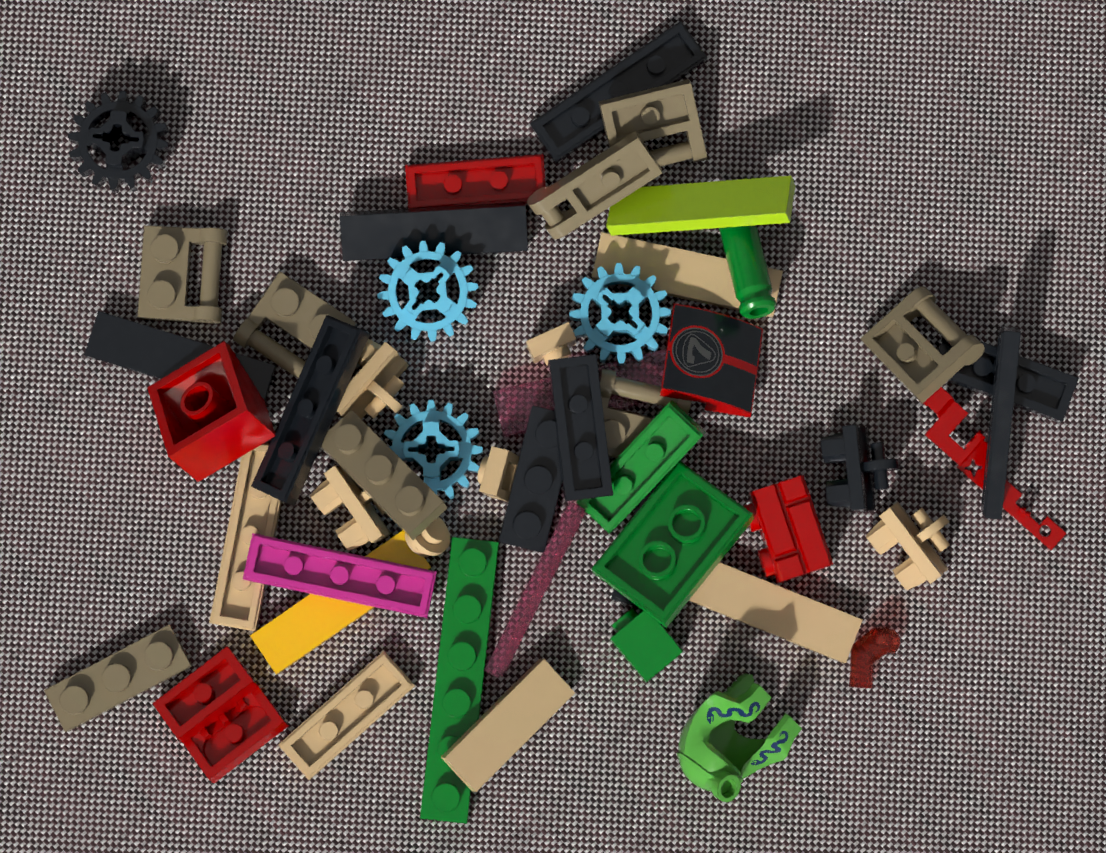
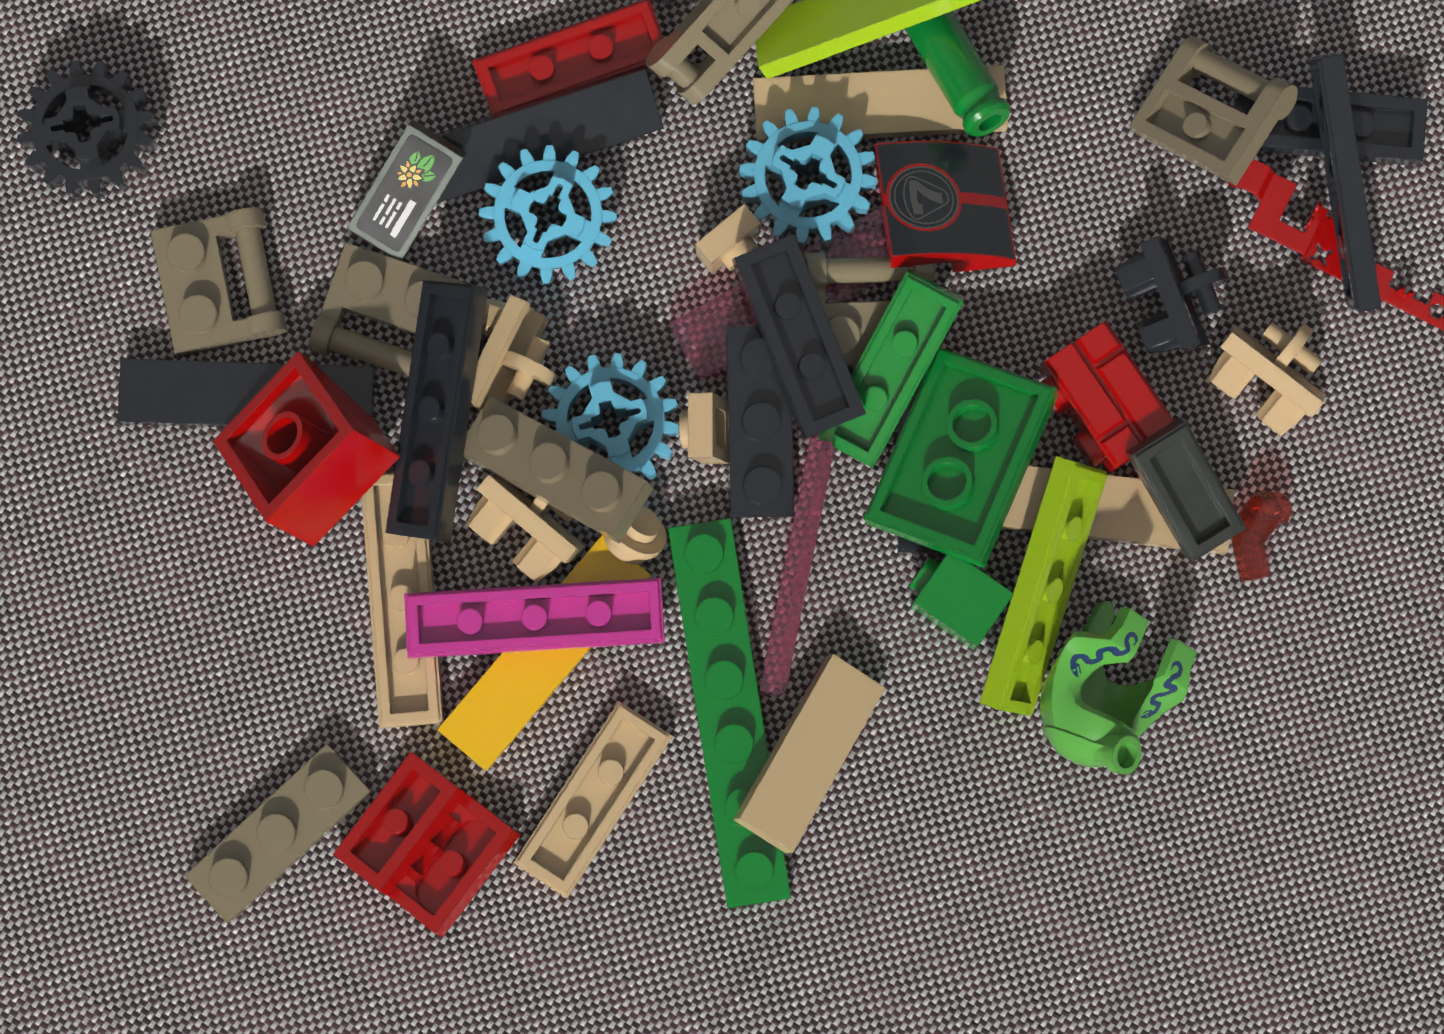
camera: 15 degrees left, 0 degrees up
(332, 246) = (406, 189): none -> tile
(706, 652) = (1043, 587): none -> lime tile
(826, 610) = (1185, 489): none -> pearl dark grey tile

